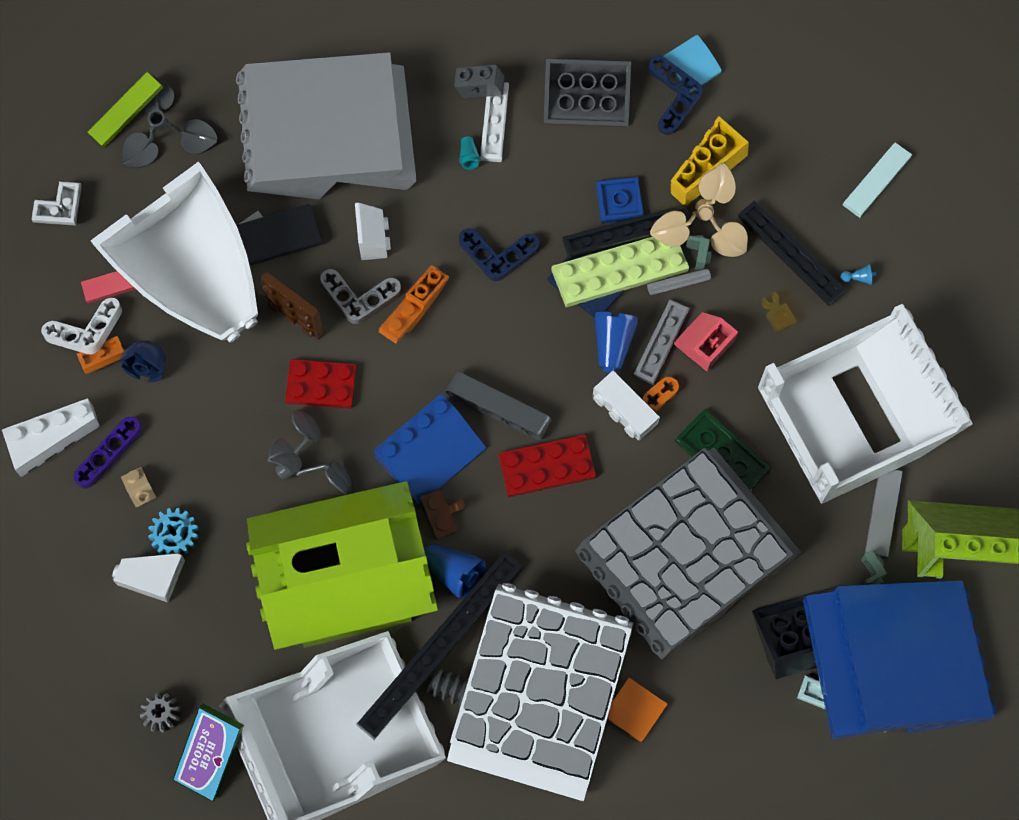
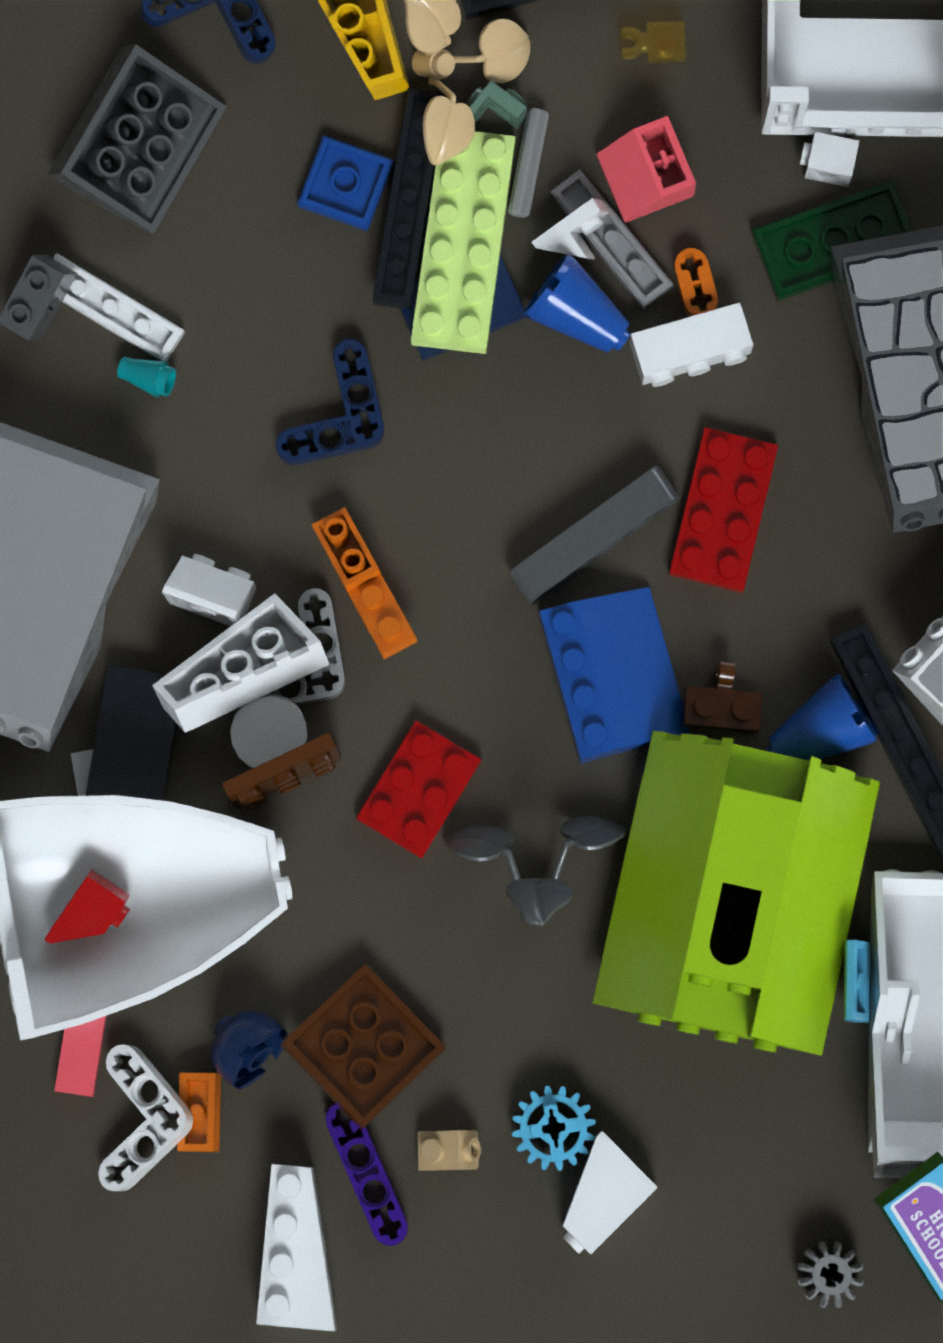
camera: 60 degrees left, 10 degrees up
(171, 417) = (363, 1046): none -> reddish brown plate
(179, 252) = (90, 910): none -> red slope
(316, 291) = (267, 729): none -> white tile
(321, 644) = (857, 981): none -> medium azure slope
(338, 261) = (241, 665): none -> white wedge
(650, 316) = (566, 236): none -> white slope
(764, 429) = (829, 159): none -> white brick

